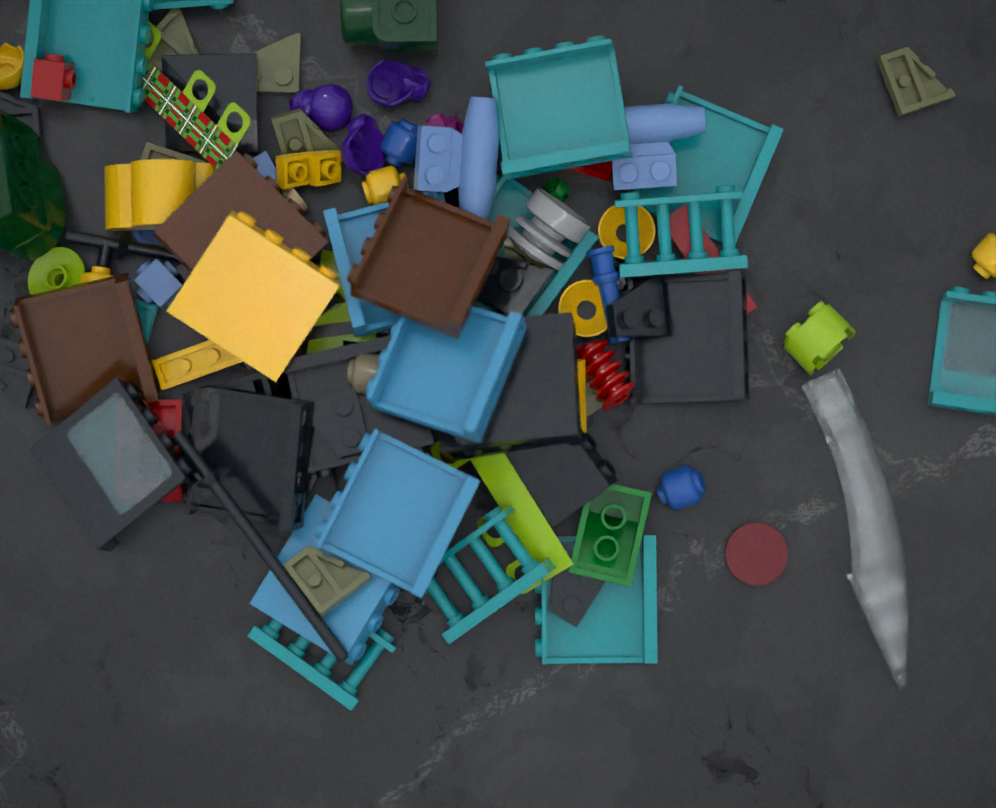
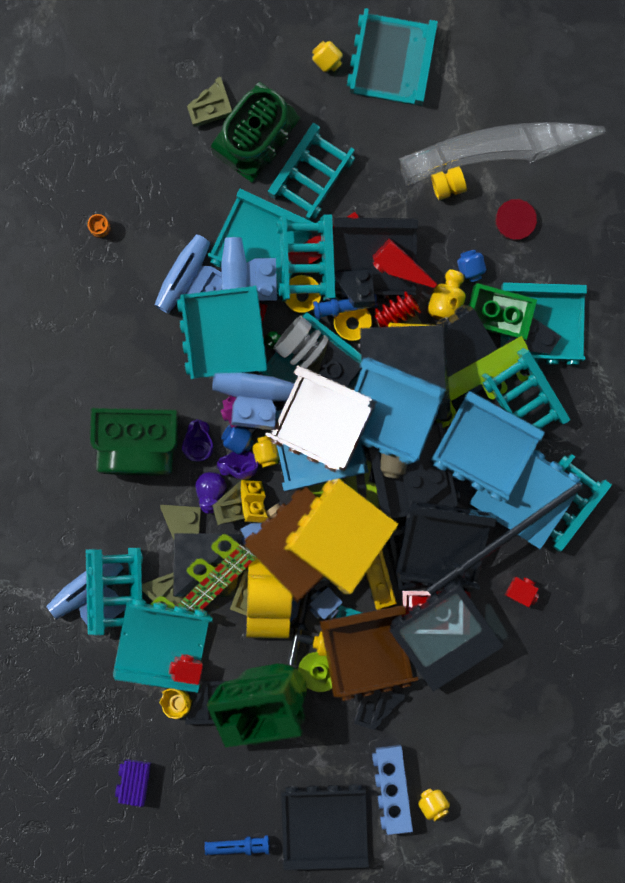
camera: 85 degrees left, 0 degrees up
(185, 581) = (522, 591): none -> red brick
(324, 578) = (527, 497): olive wing -> none
(630, 451) = (447, 296): none -> yellow piece
(648, 59) = (188, 275): none -> medium blue plate
(674, 373) = (399, 264): none -> red slope
(807, 447) = (448, 183): none -> yellow wheel
(818, 337) = (378, 171): lime brick -> none
(841, 224) = (302, 154): none -> teal fence
(844, 149) = (249, 148): none -> dark green brick

